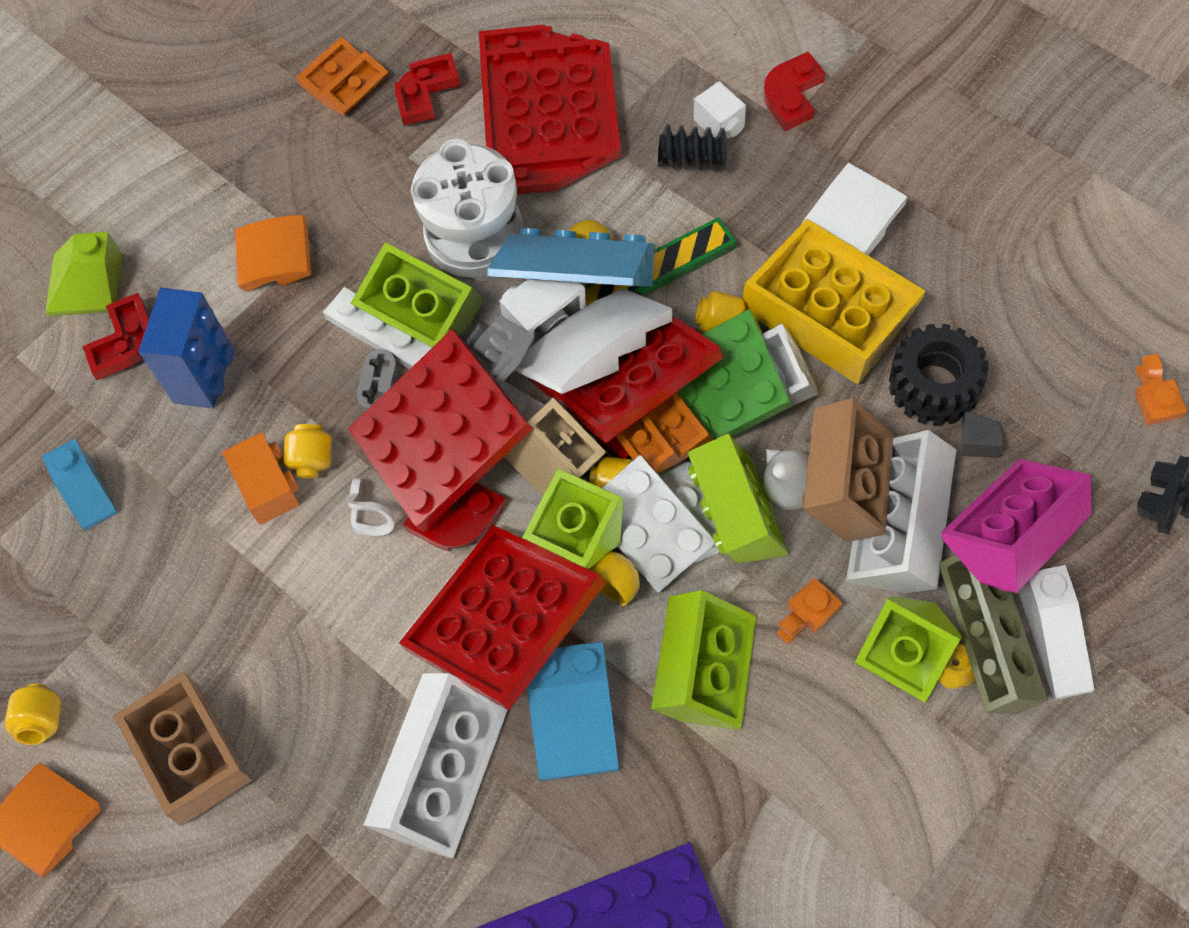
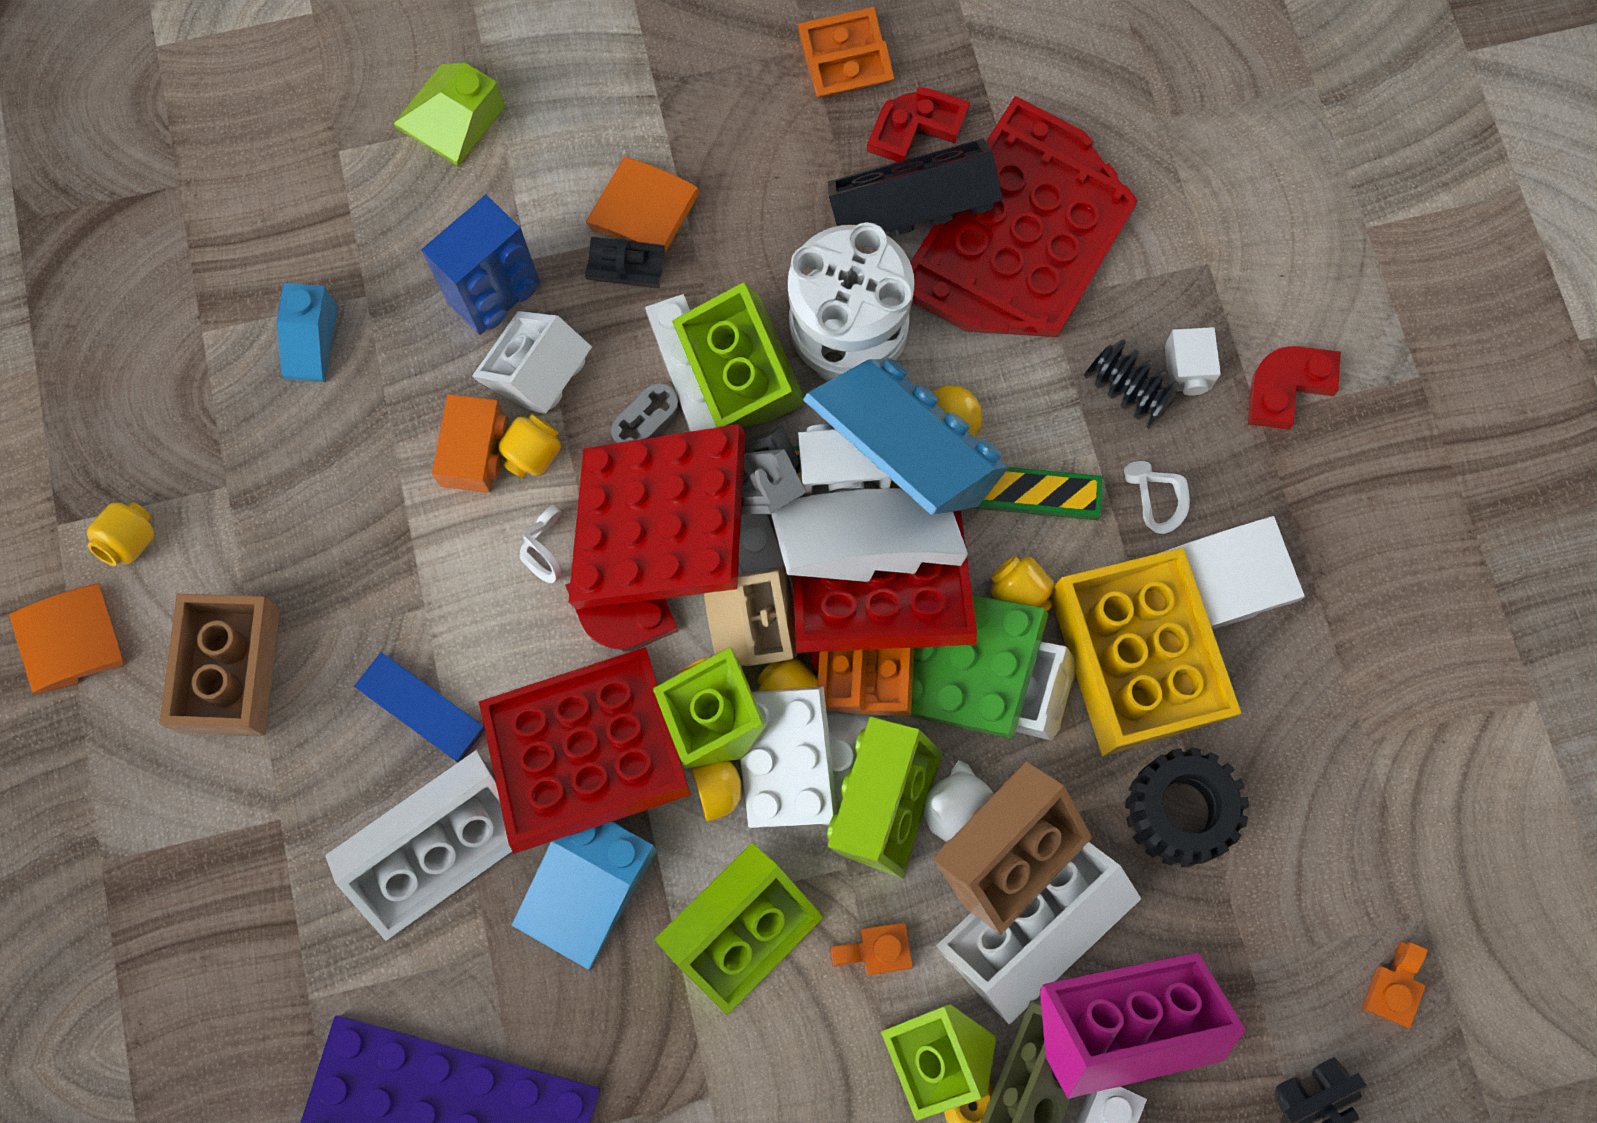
camera: 30 degrees right, 10 degrees up
(120, 348) = (431, 212): red plate -> none
(267, 394) = (533, 361): none -> white slope
(288, 290) = (625, 262): none -> black hips
(356, 679) = (420, 707): none -> blue tile
(463, 115) = (919, 189): none -> black slope
(744, 199) = (1141, 472): none -> white piece
(980, 436) = (1181, 899): dark grey slope -> none

